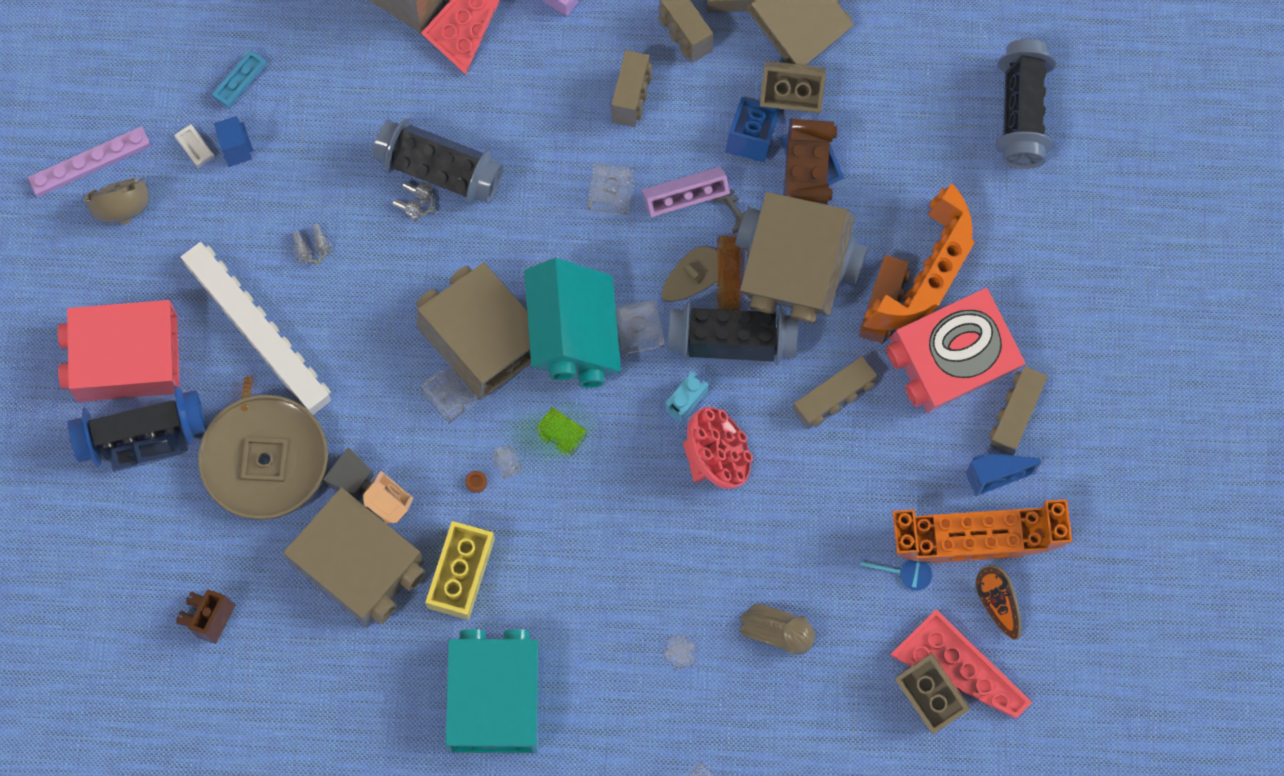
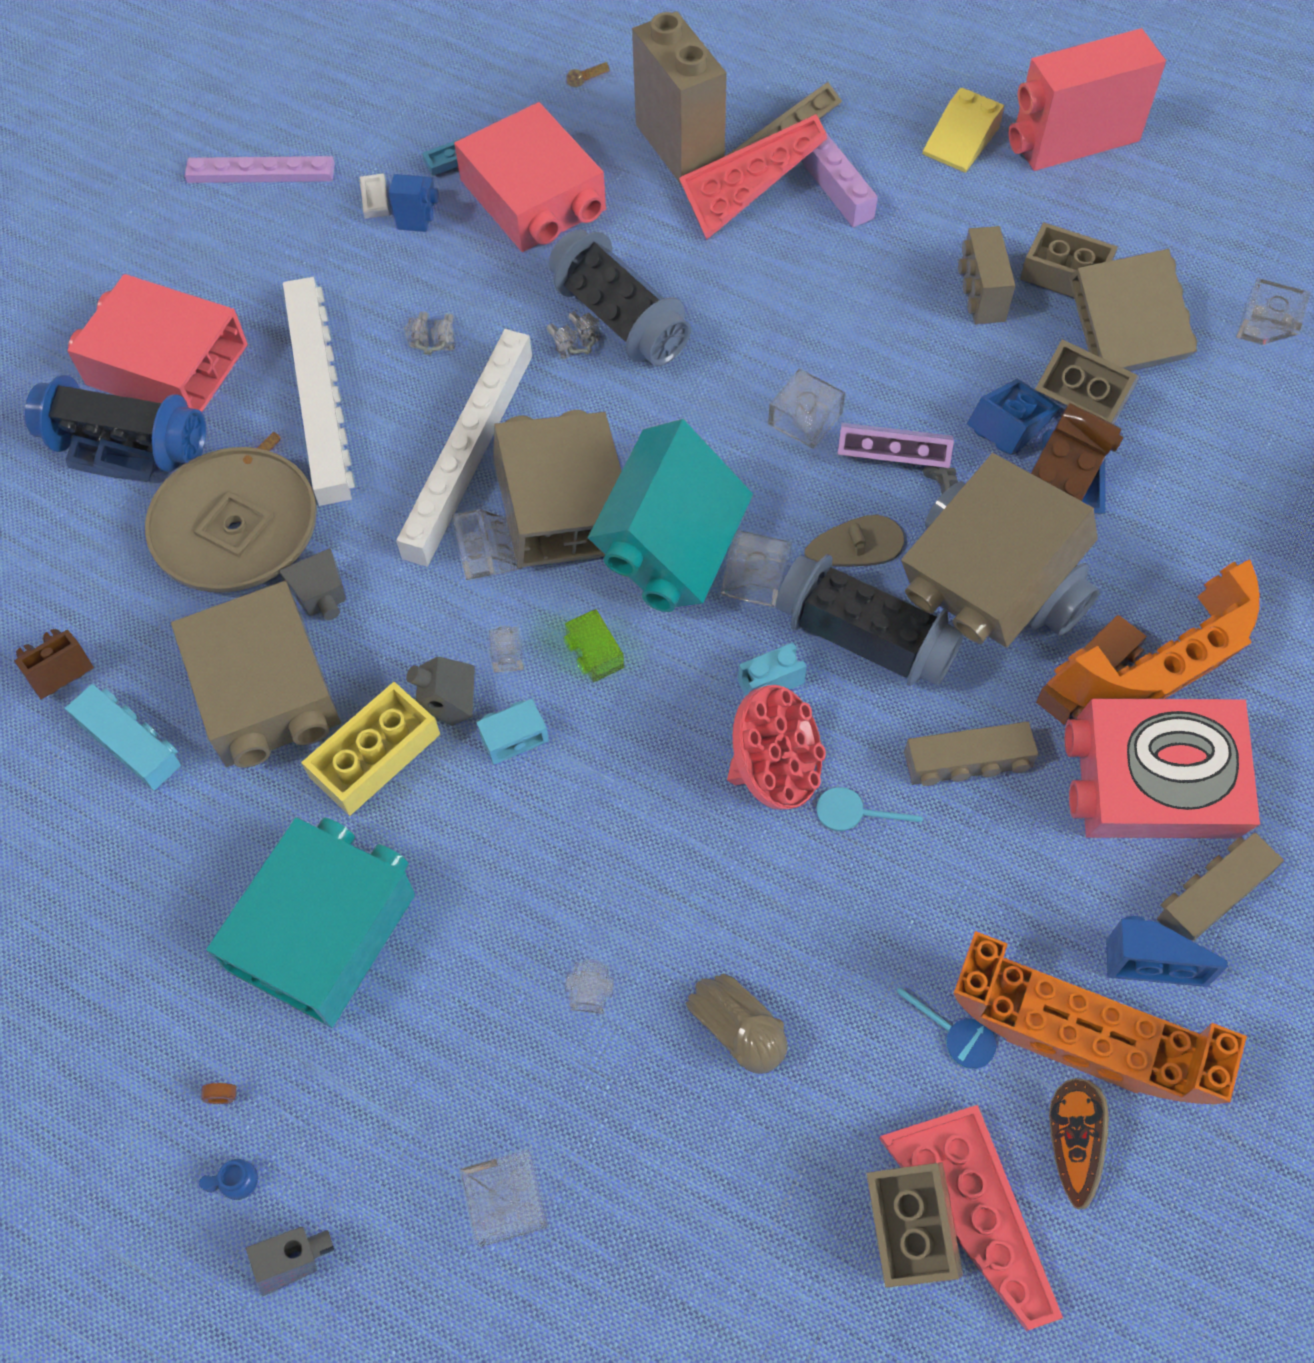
camera: 30 degrees right, 10 degrees down
(118, 201) = (258, 208): dark tan cylinder -> none
(289, 641) = (123, 736): none -> medium azure brick
(313, 83) = (531, 176): none -> coral brick
(387, 498) = (333, 619): light nougat slope -> none
(392, 325) = (464, 449): none -> white brick
(476, 482) = (460, 653): dark orange tile -> none
(485, 508) = (444, 688): none -> dark grey torso
(541, 515) = (512, 731): none -> medium azure brick
(631, 88) = (886, 313): dark tan brick -> none
(728, 274) = (891, 574): clear orange plate -> none
(773, 466) = (843, 809): none -> medium azure piece

